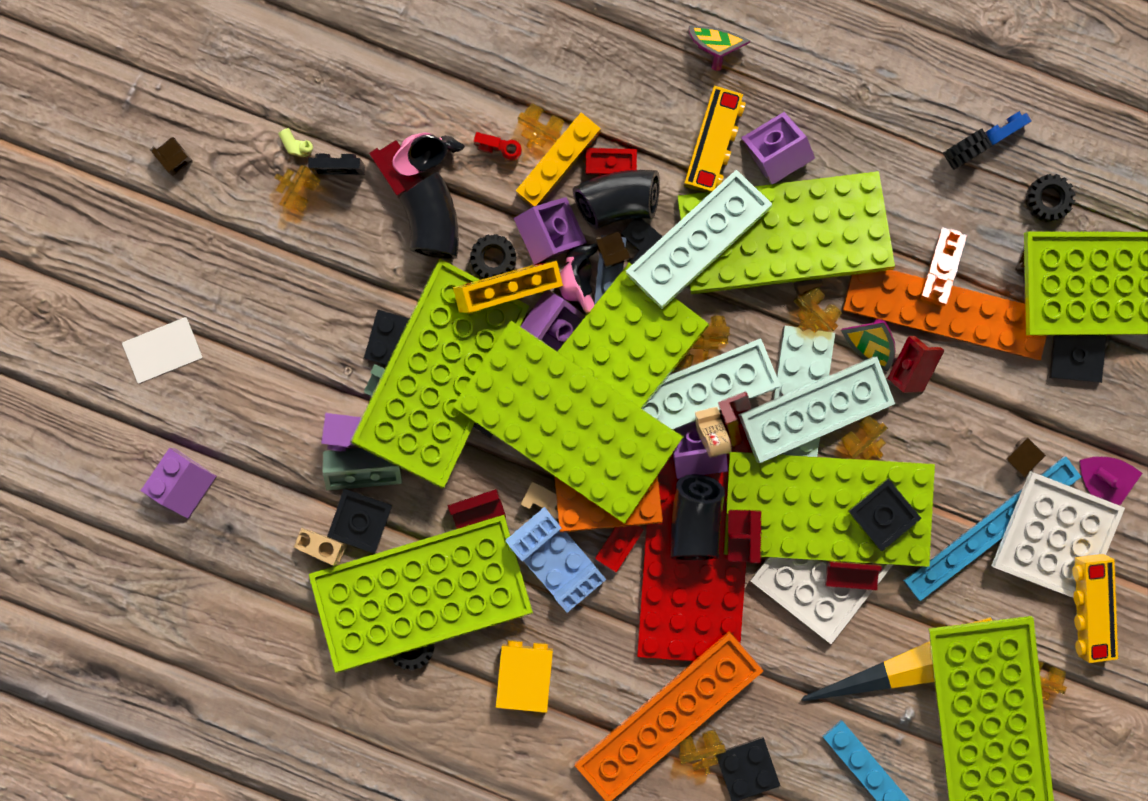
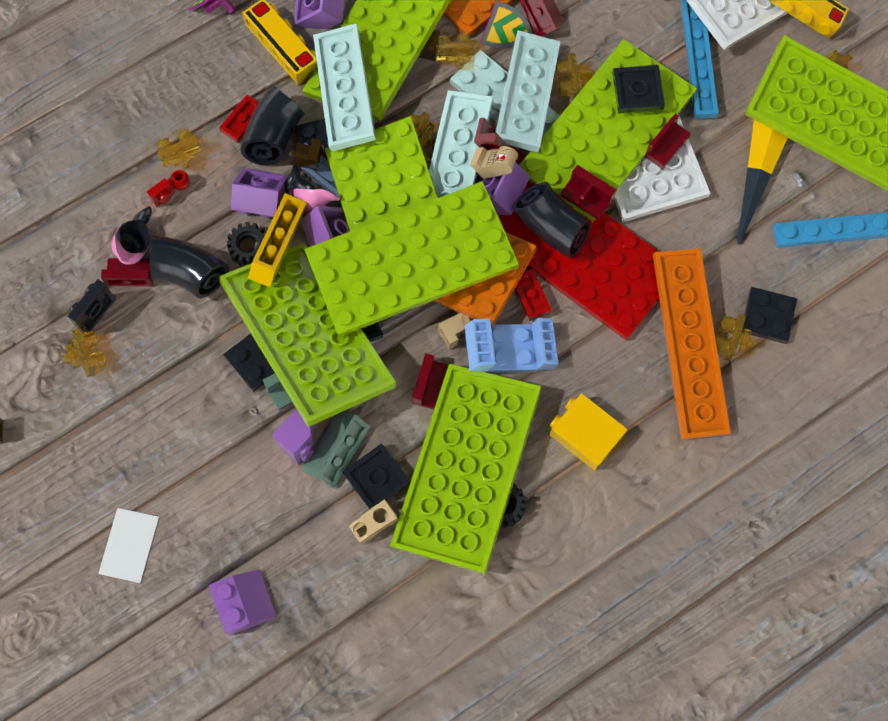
camera: 60 degrees left, 15 degrees down
(293, 146) = (54, 335): yellowish green arm -> none
(558, 161) = (213, 151): yellow brick -> none

